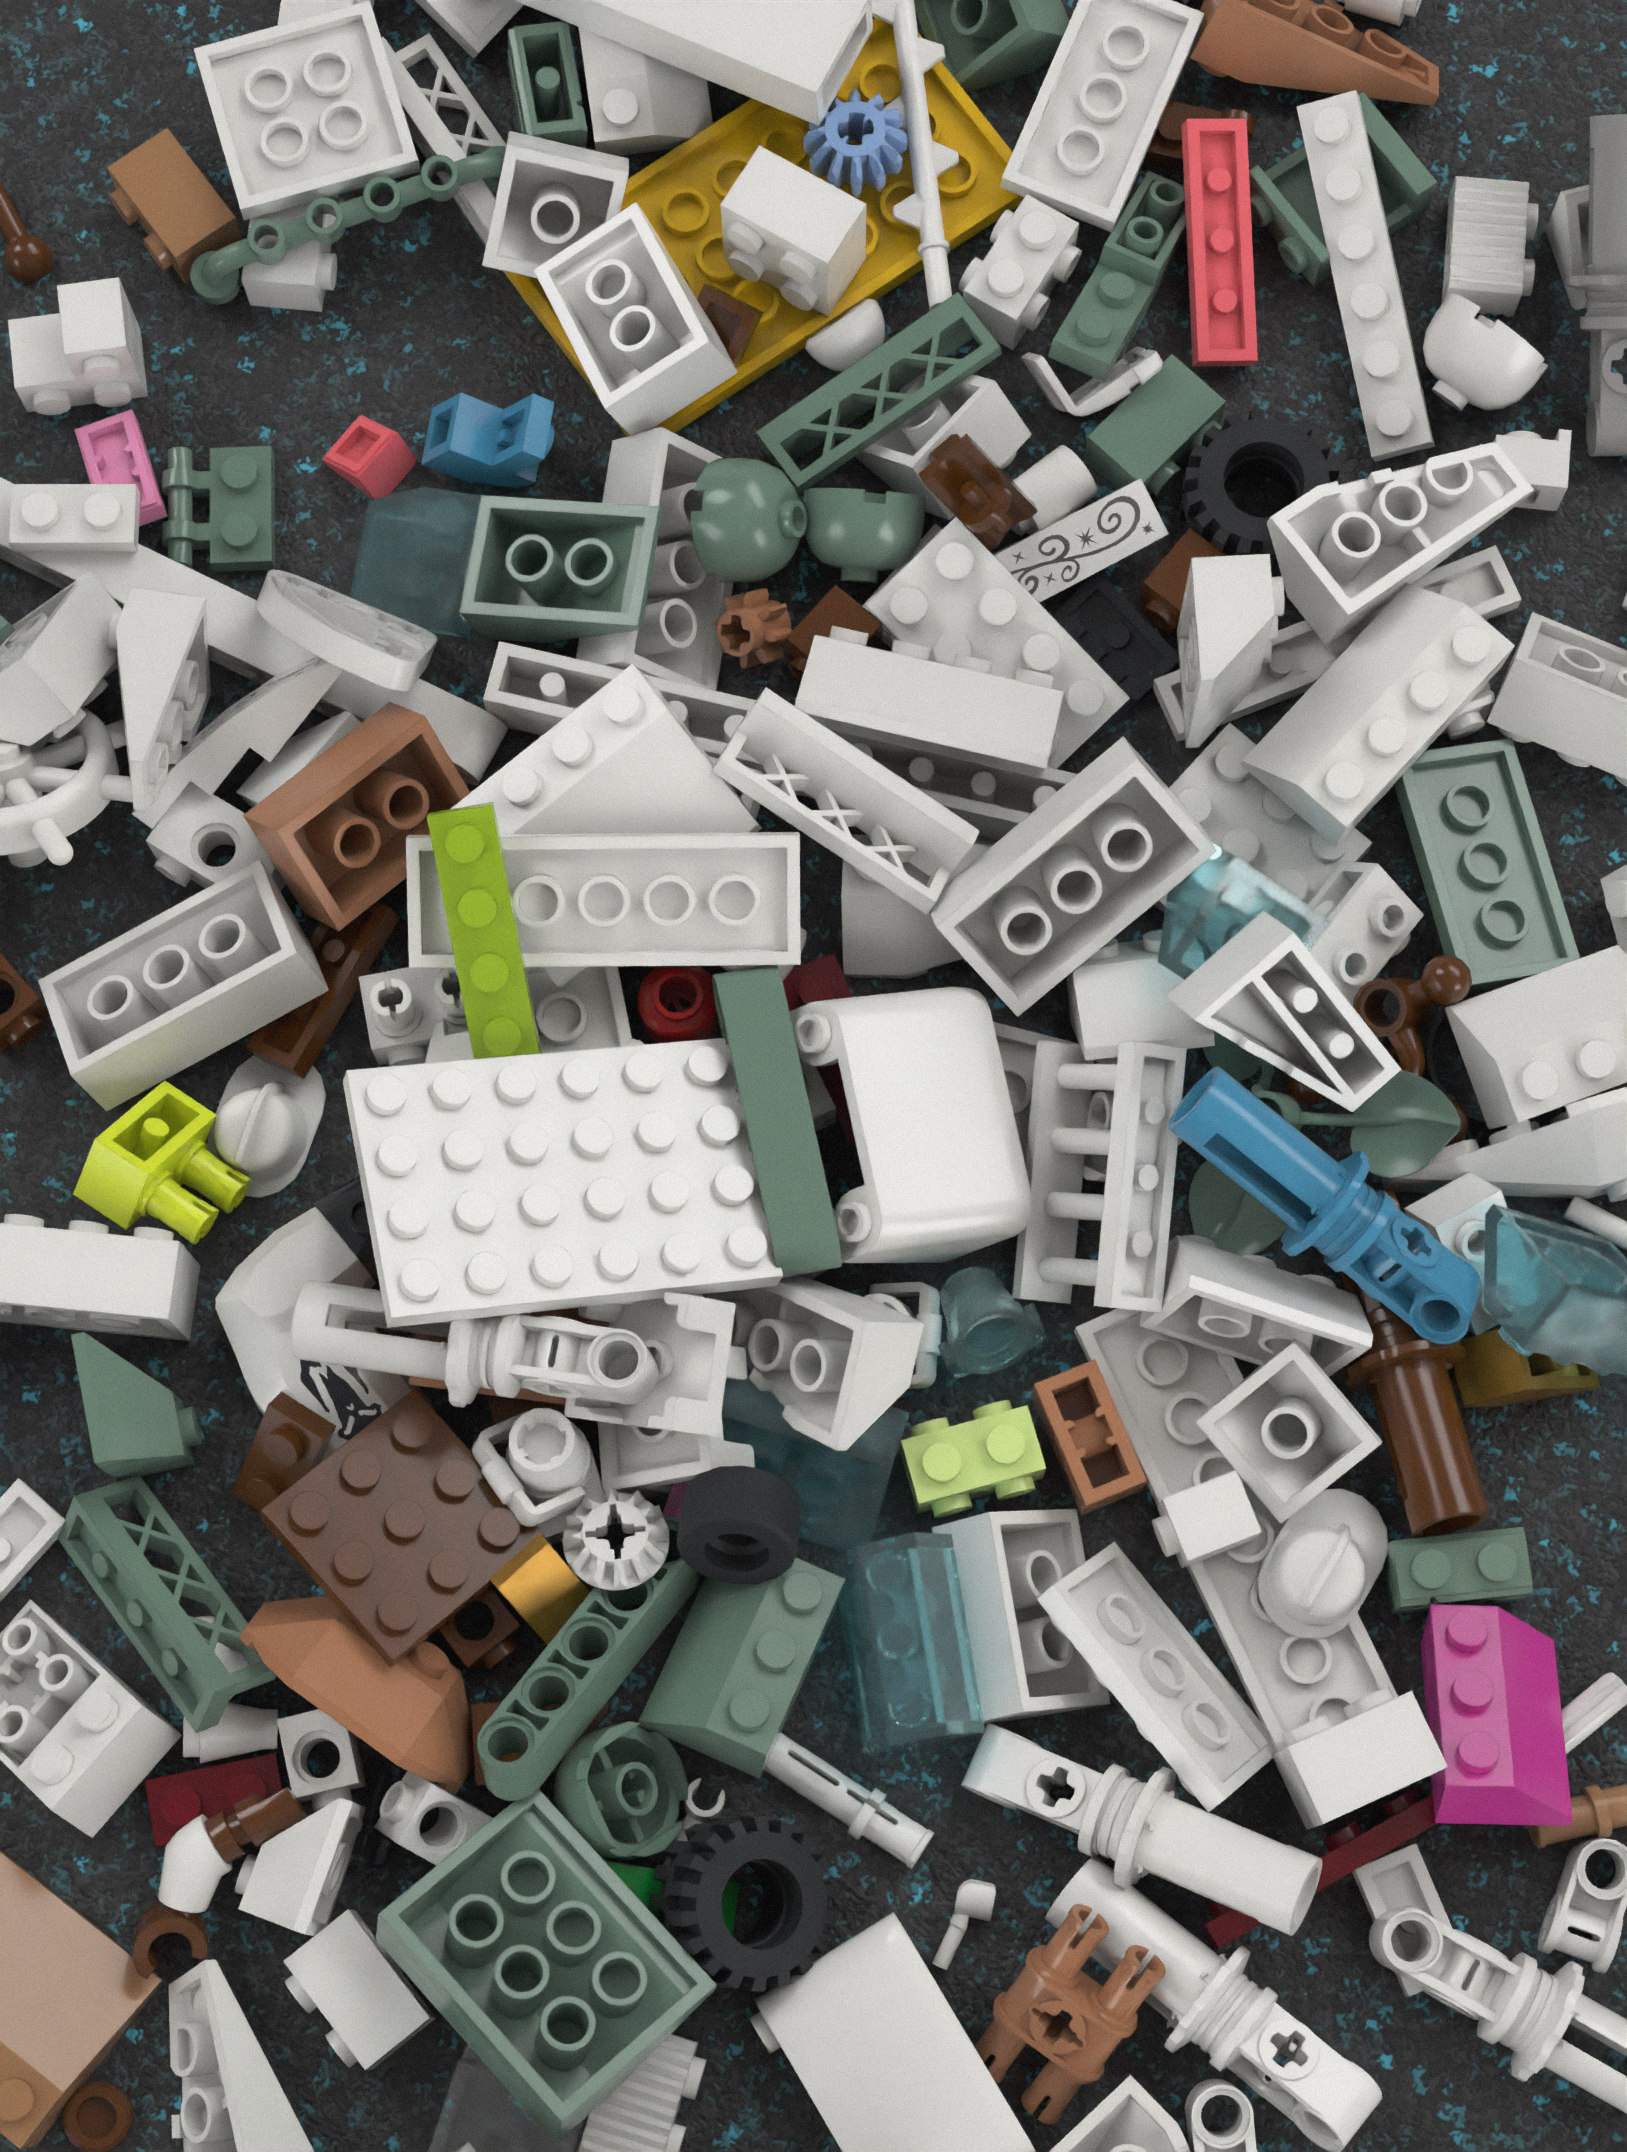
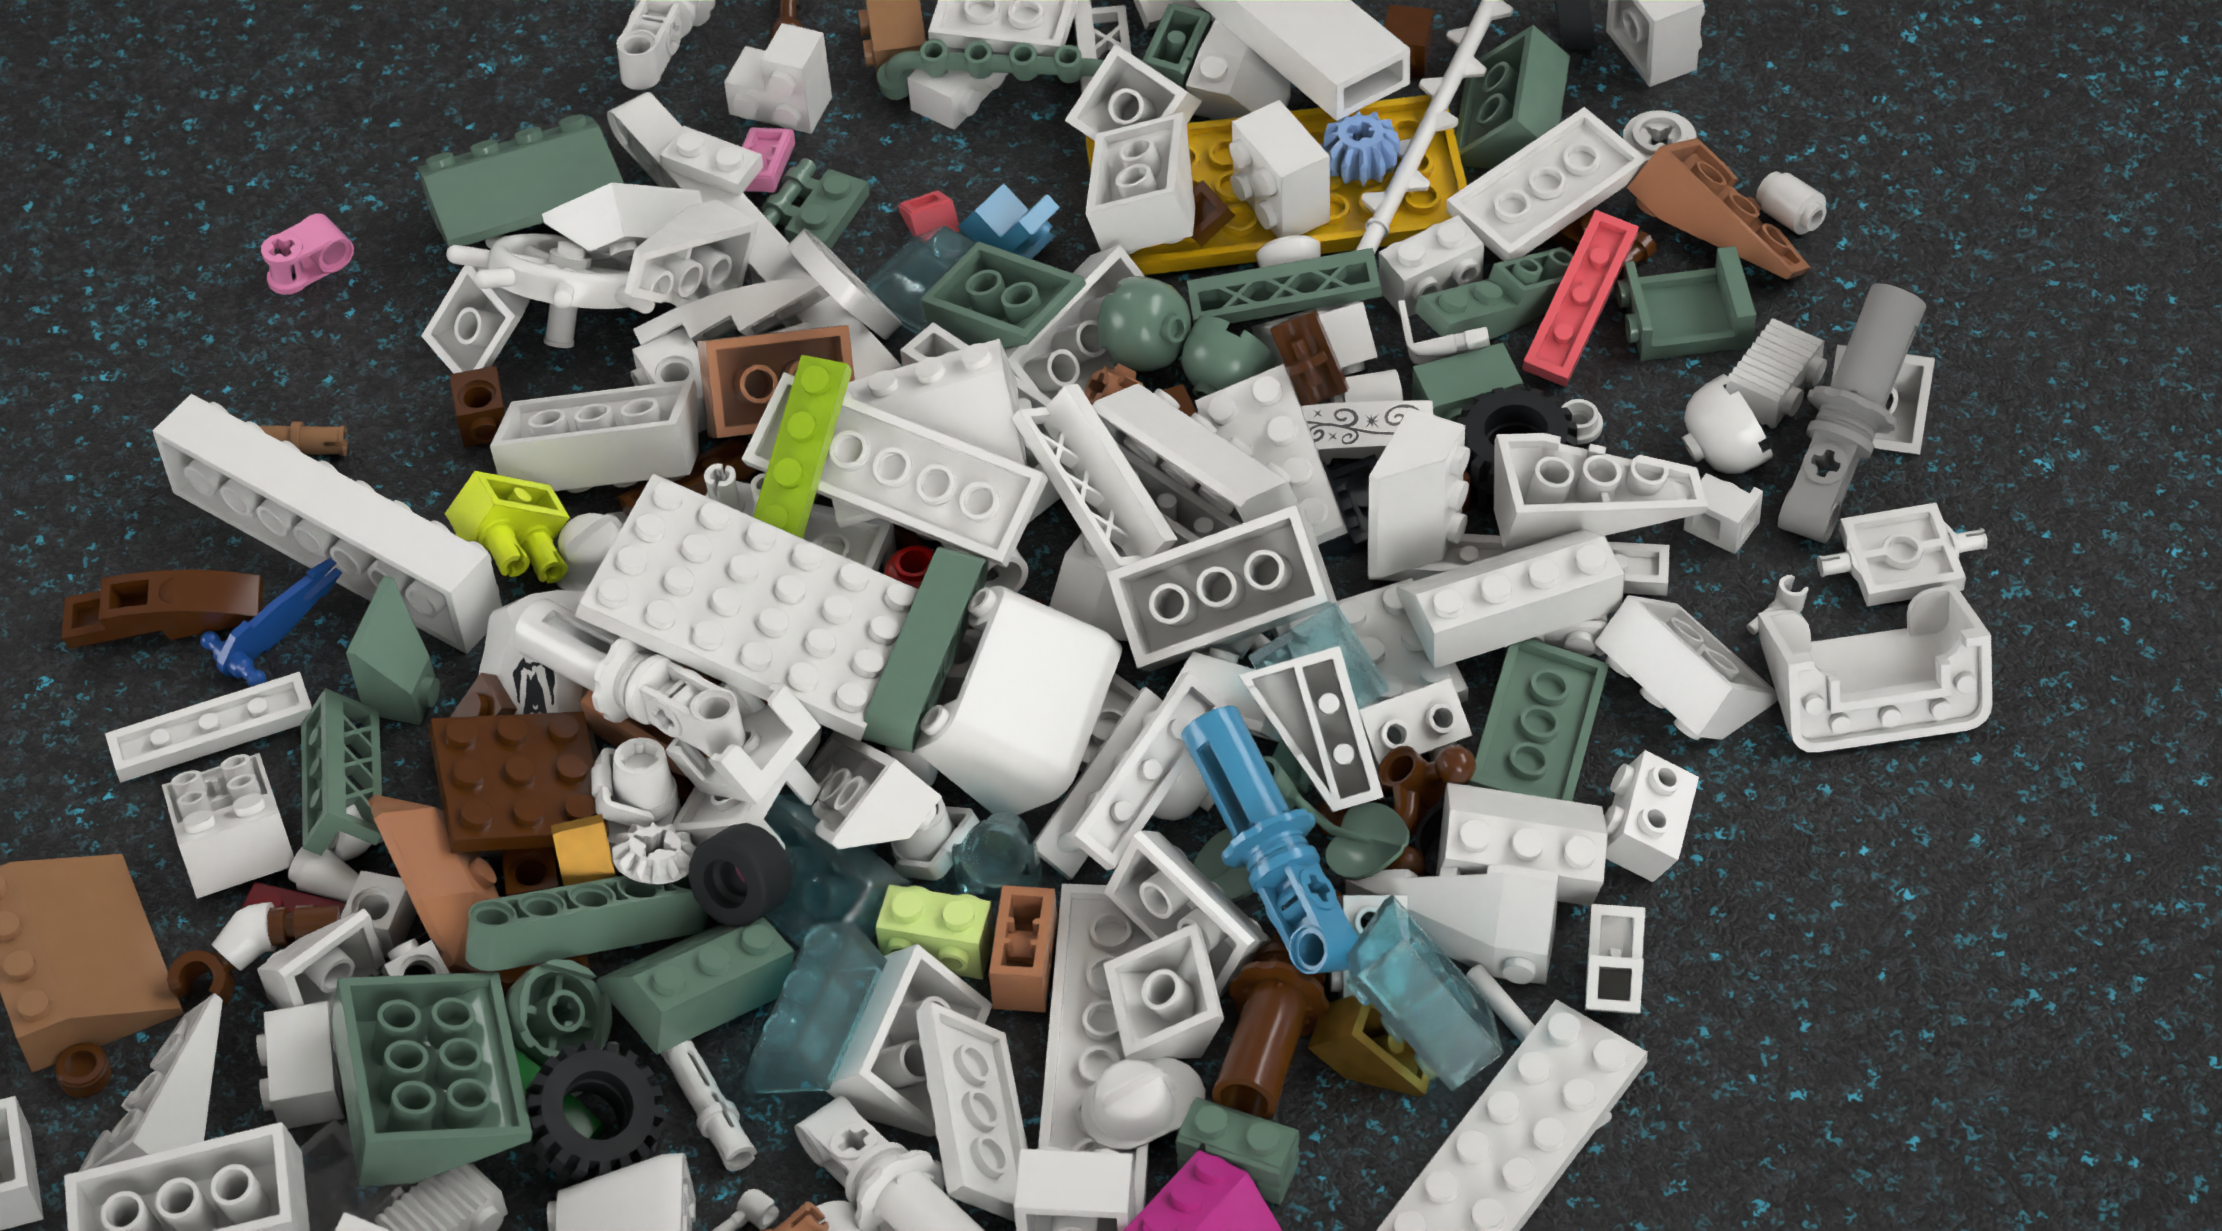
camera: 30 degrees right, 25 degrees down
(1206, 1520) = (1071, 1026): white brick -> none
(1302, 399) = (1587, 419): none -> white plate
(1365, 276) = (1675, 347): white plate -> none

